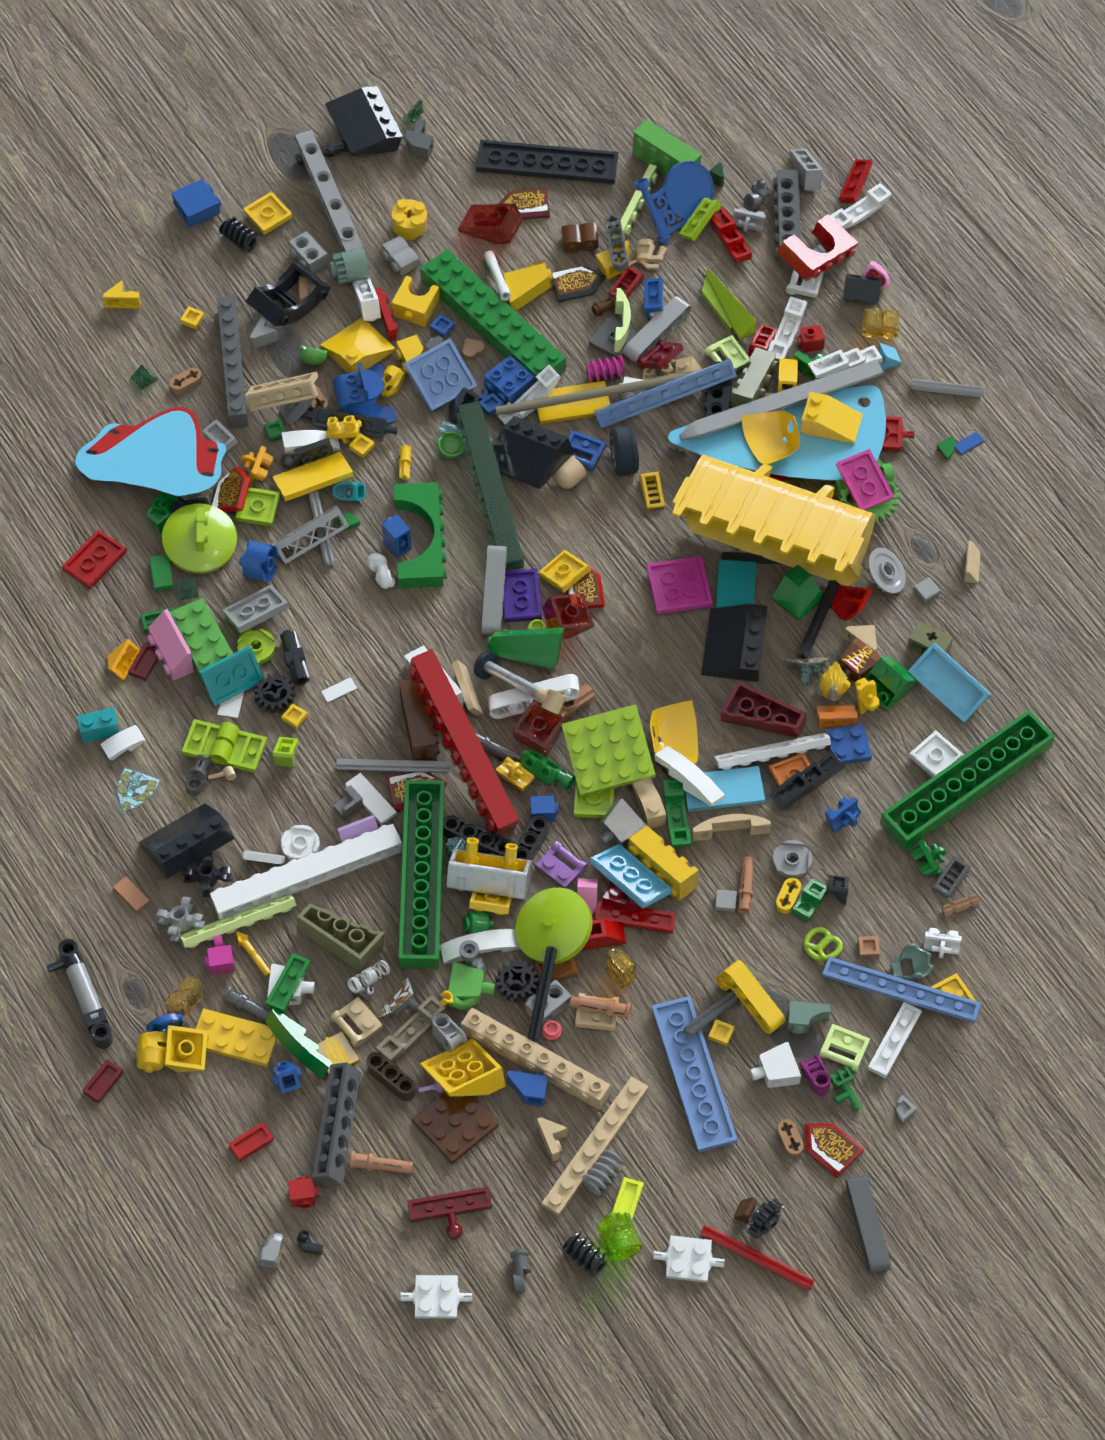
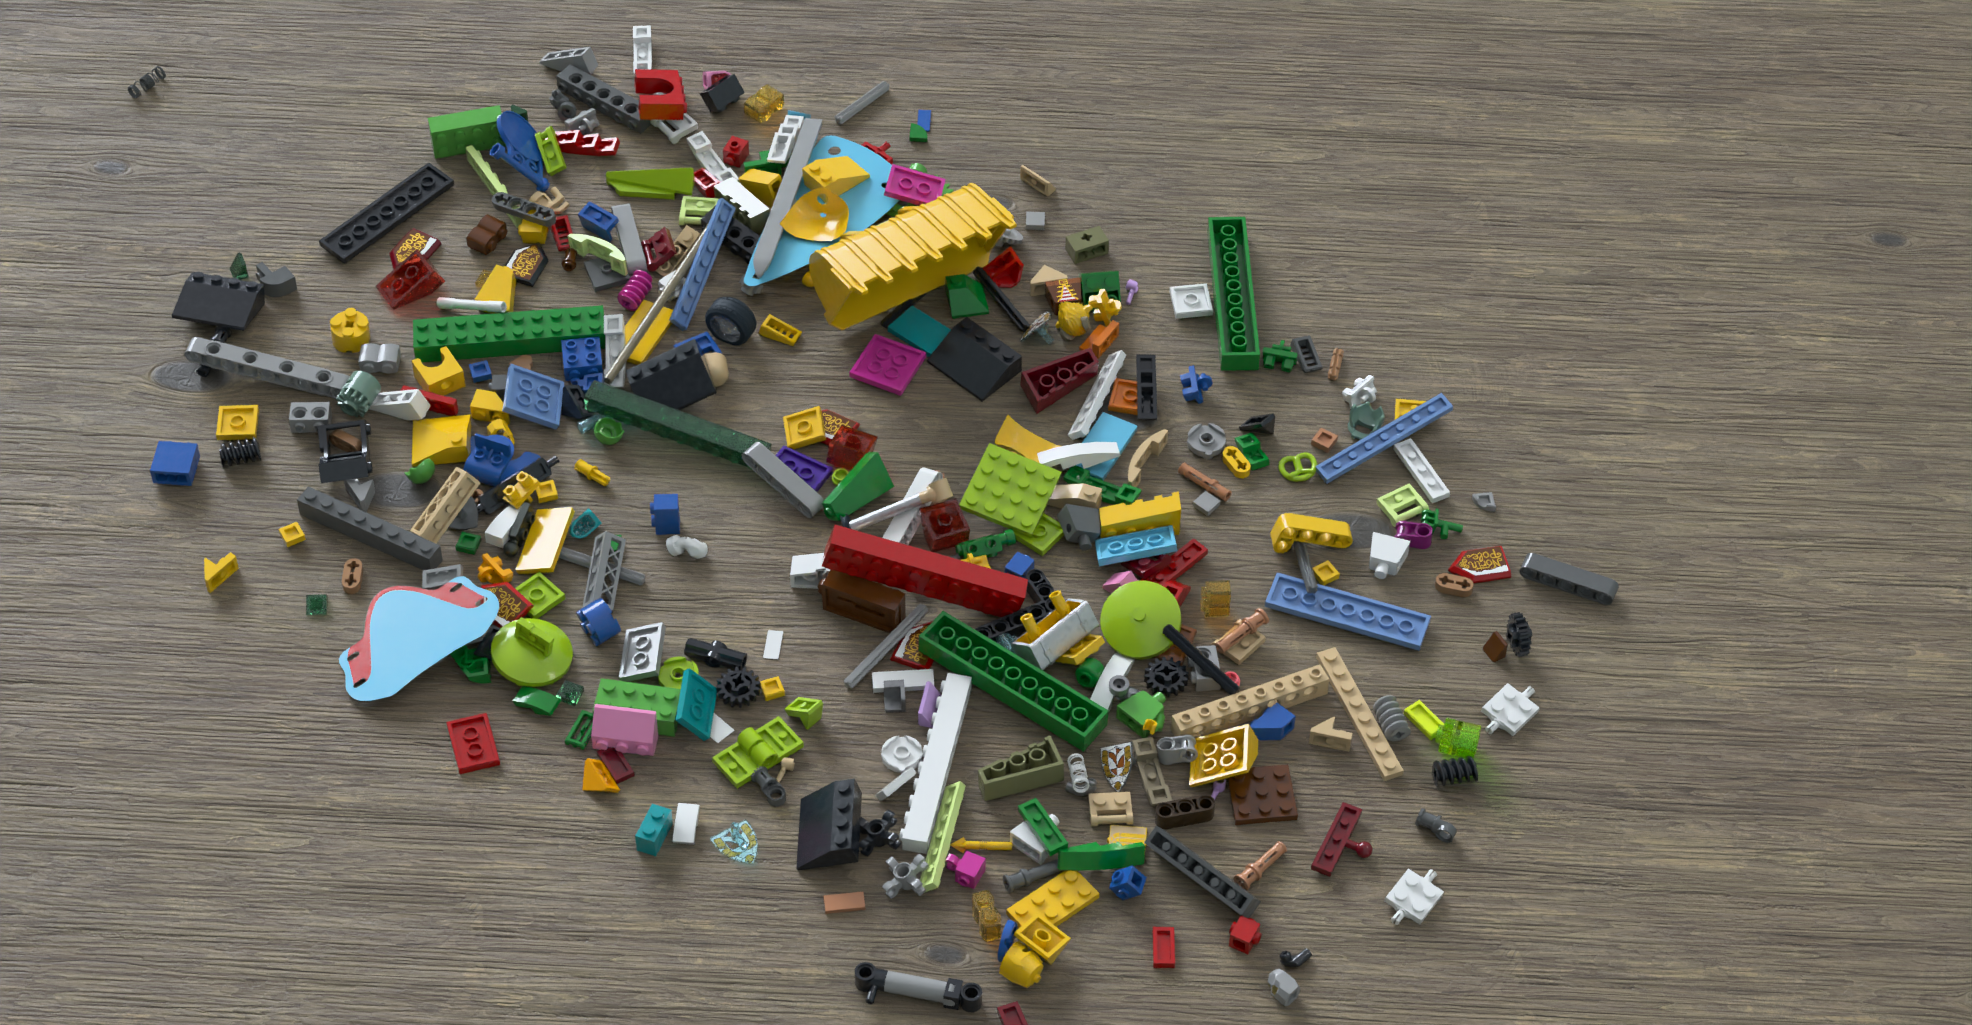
camera: 55 degrees left, 10 degrees down
(427, 568) = (649, 479): green arch -> none
(557, 870) = (1091, 593): medium lavender plate -> none
(757, 1257) = (1542, 665): red axle -> none
(805, 1014) = (1355, 512): sand green arch -> none
(849, 743) = (1131, 344): blue plate -> none
(855, 181) = (612, 41): red tile -> none
(915, 705) = (1132, 287): none -> lavender hand
(949, 682) = (1136, 252): medium azure slope -> none

